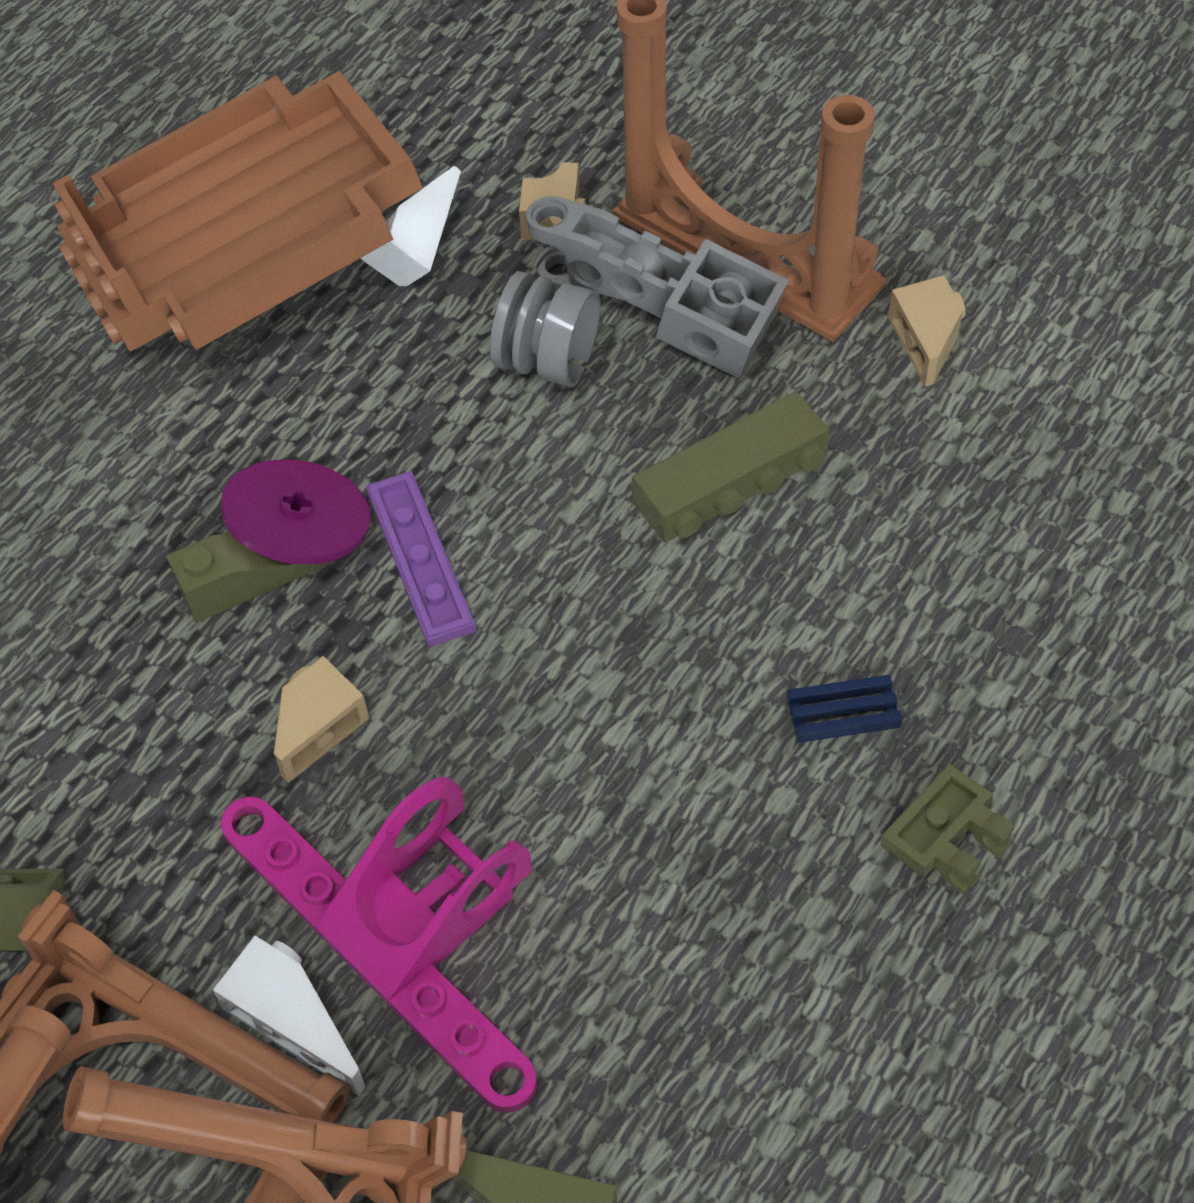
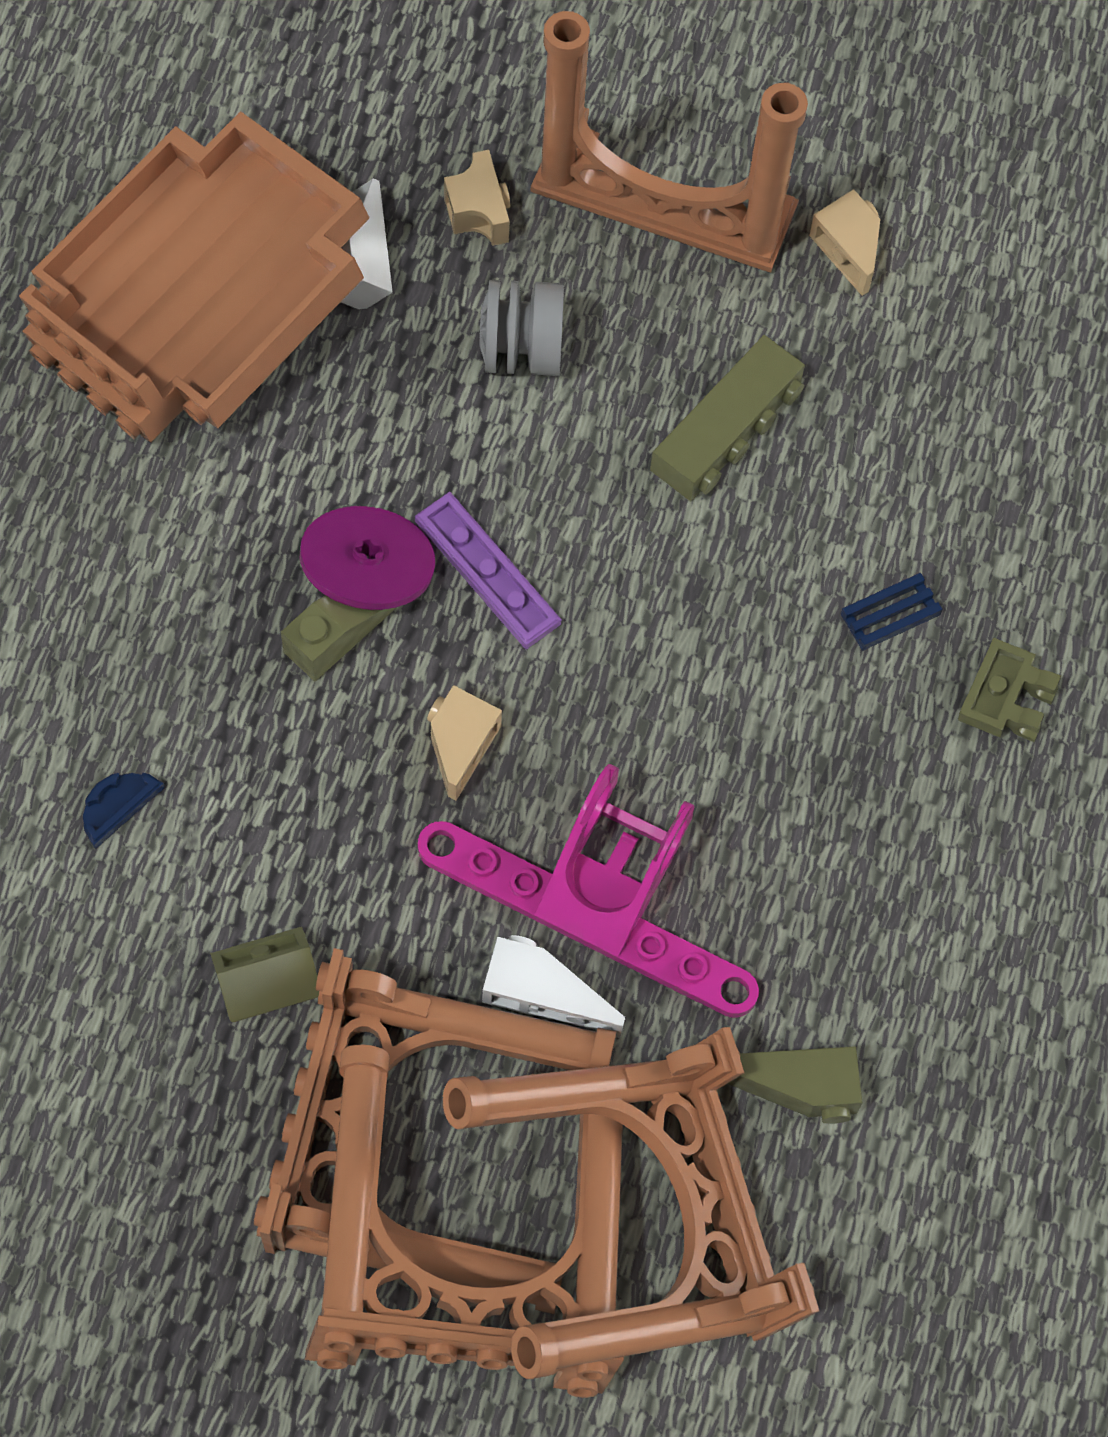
camera: 25 degrees left, 10 degrees up
(707, 301) = (659, 264): light grey brick -> none

